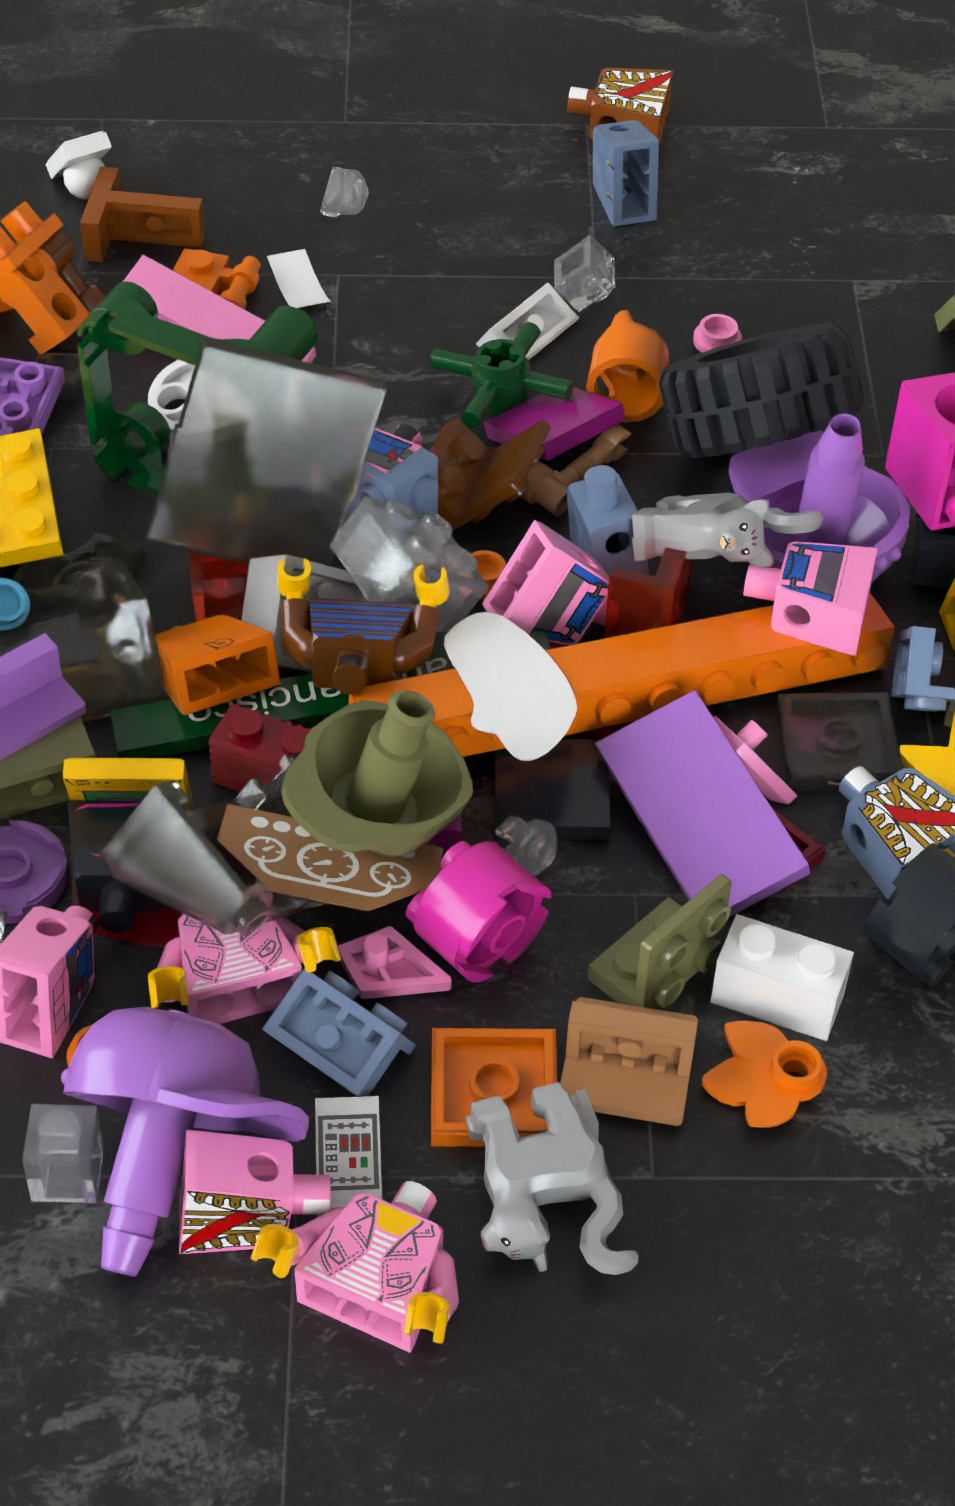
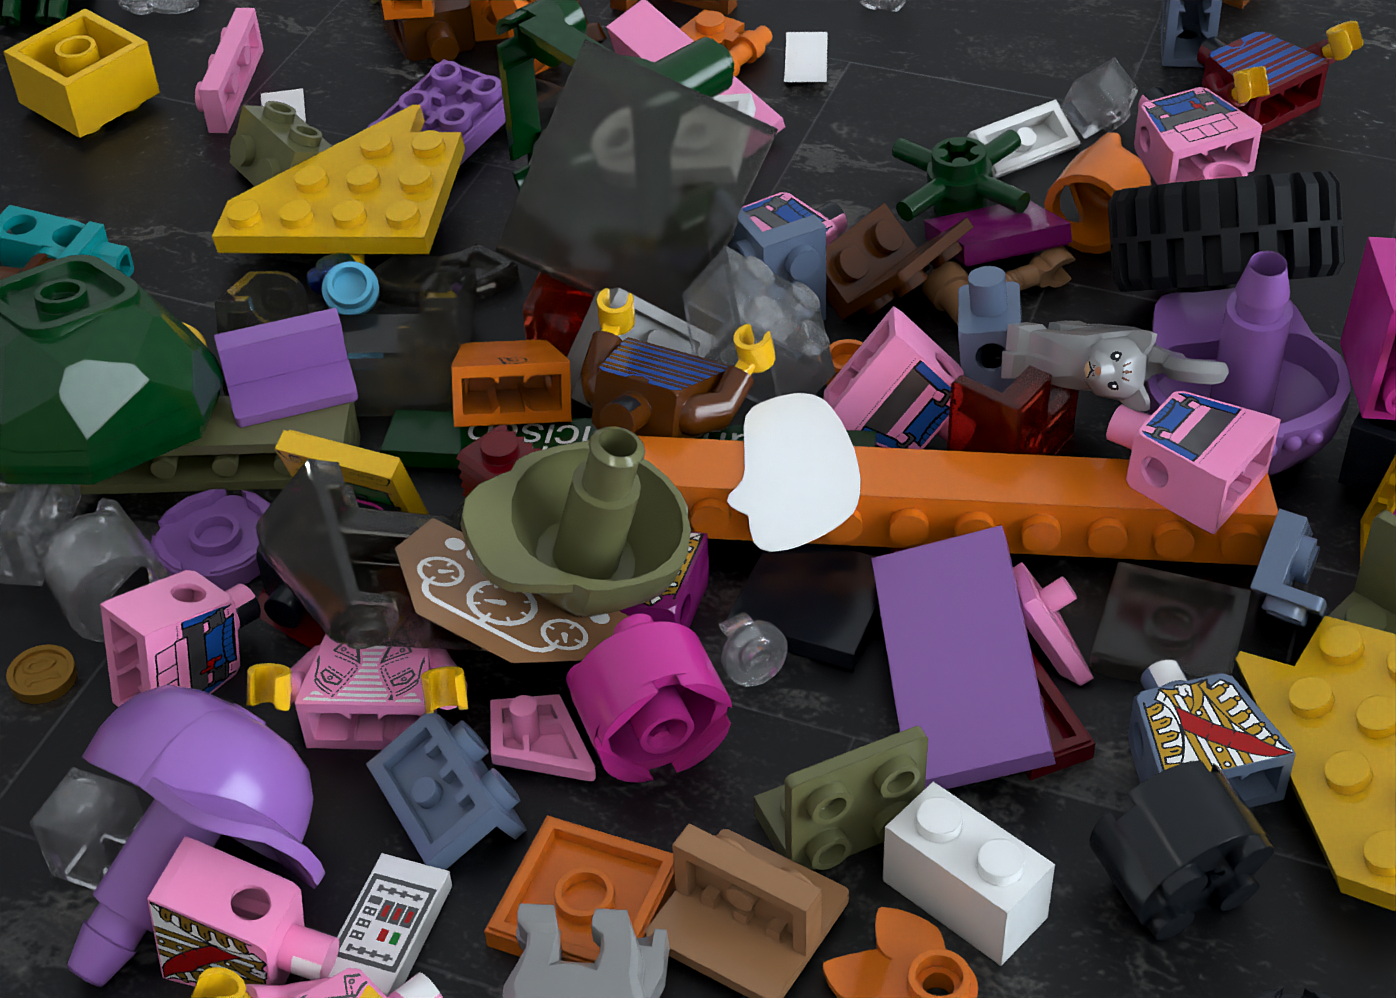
camera: 25 degrees right, 5 degrees down
(675, 293) = (1191, 130): none -> bright pink torso
(714, 227) = (1273, 77): none -> dark red torso

